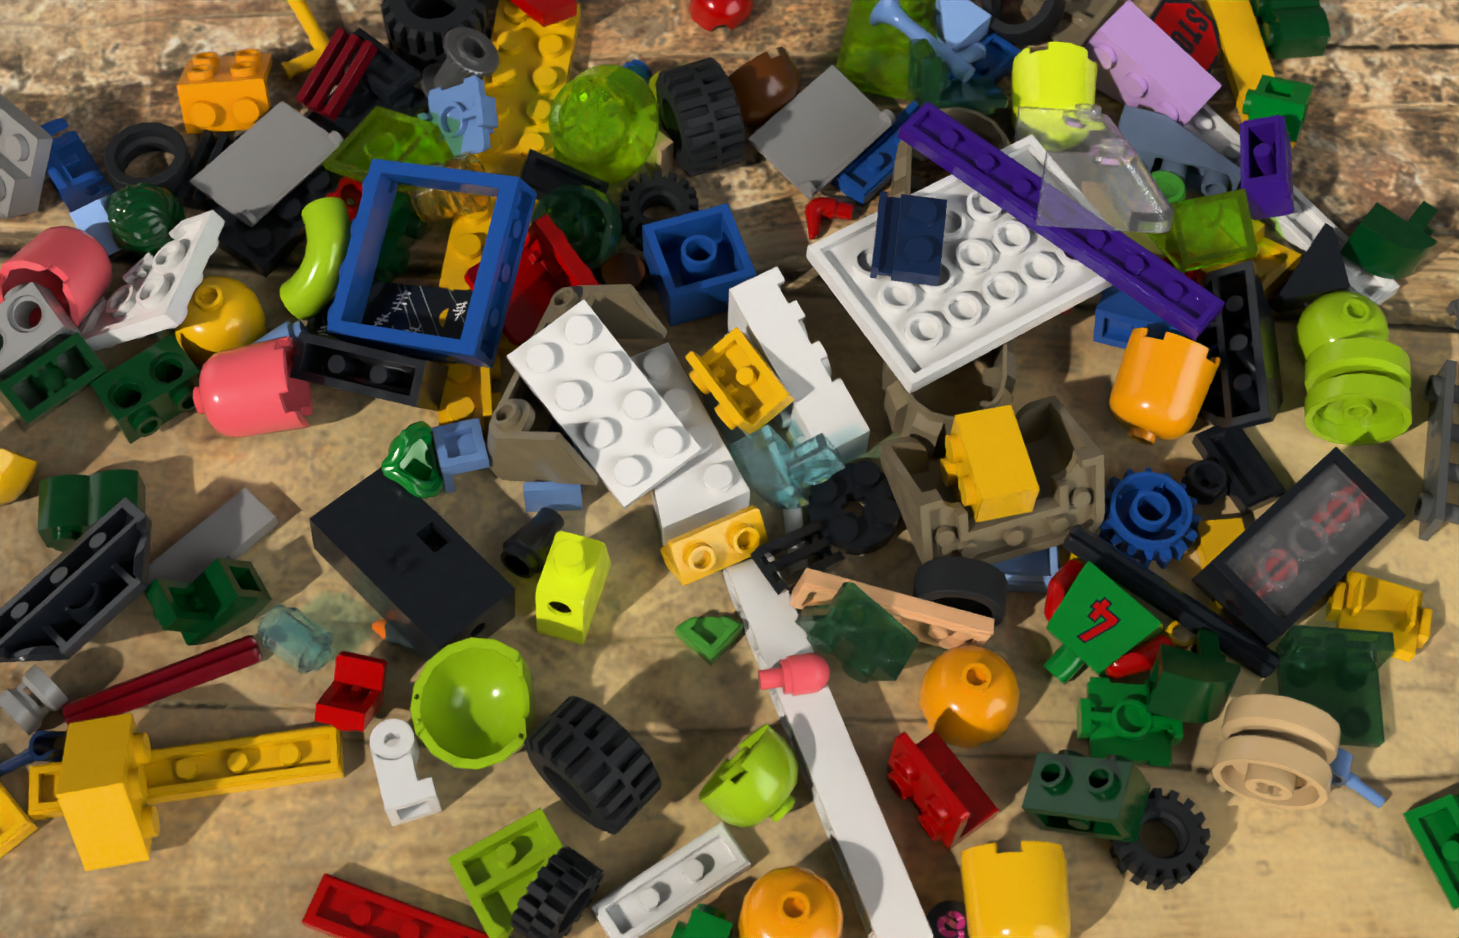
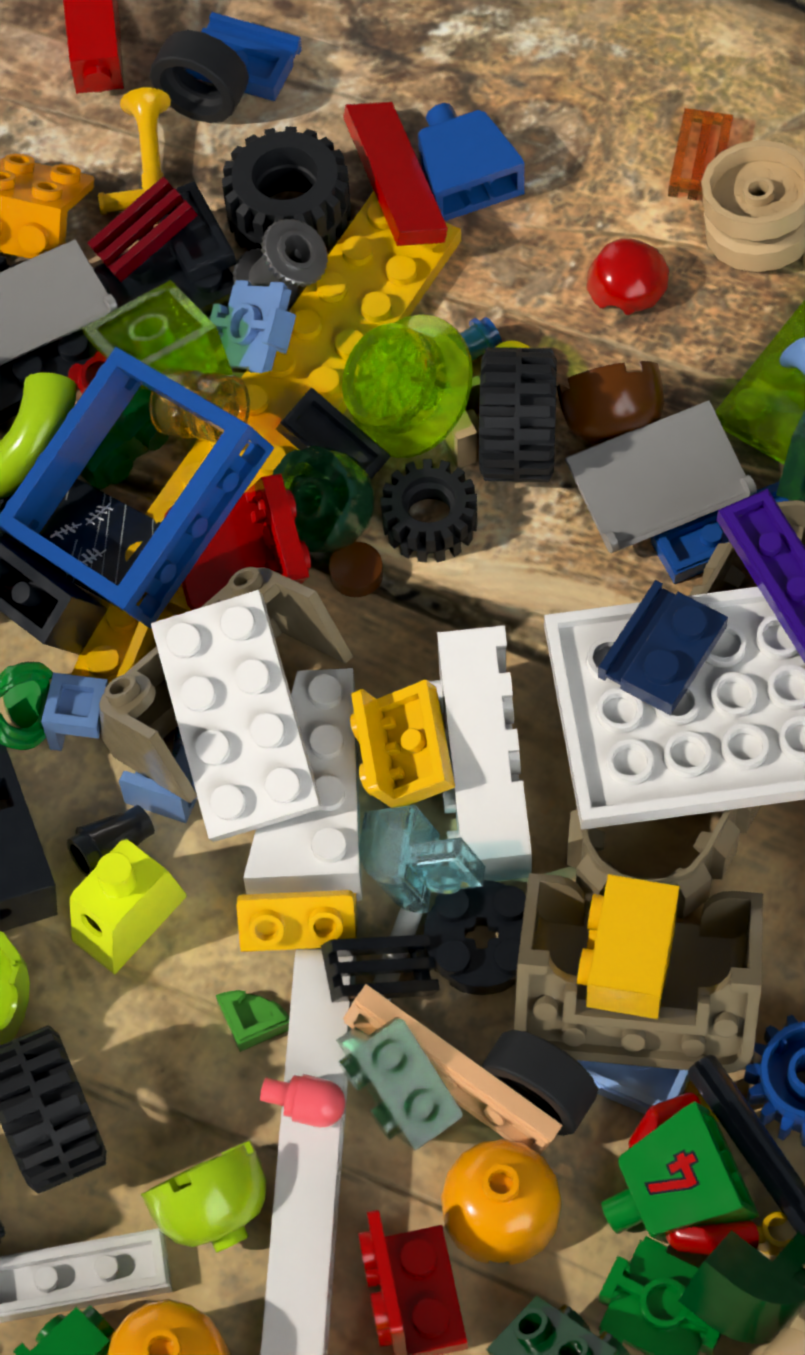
camera: 30 degrees right, 0 degrees up
(696, 262) = (434, 583): blue brick -> none
(825, 208) = (621, 569): red animal -> none

